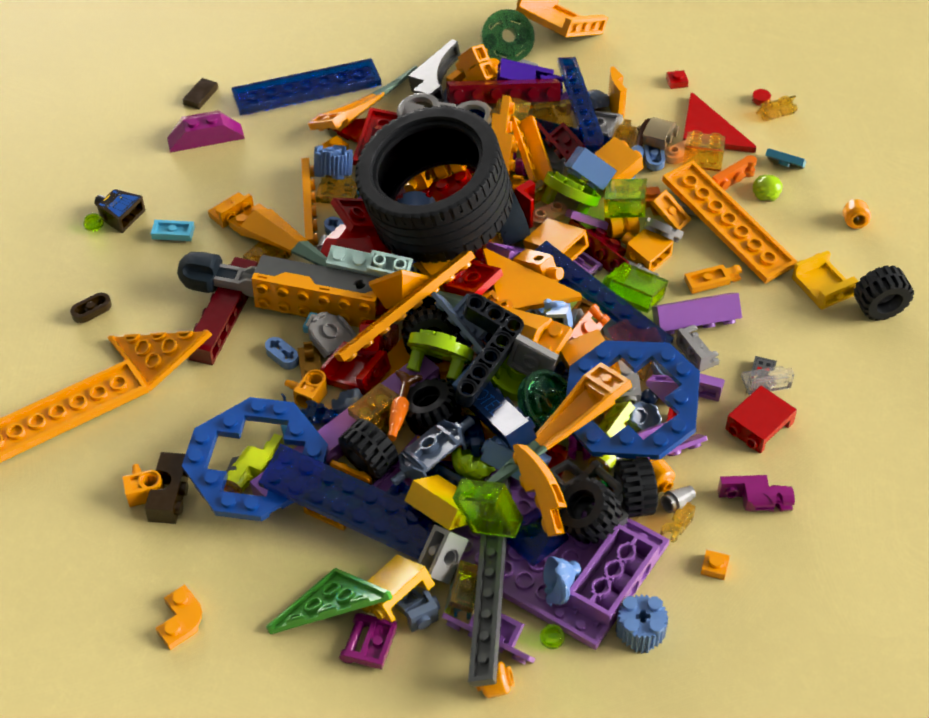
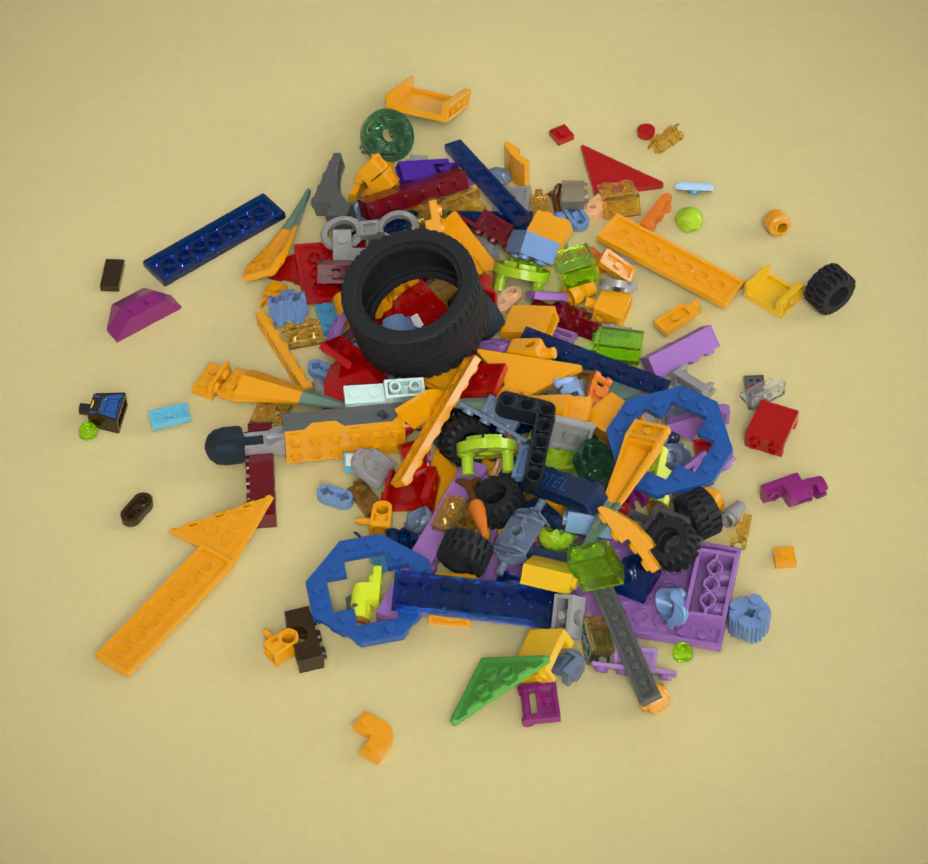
camera: 20 degrees left, 0 degrees up
(626, 332) = (630, 388): clear pink tile -> none

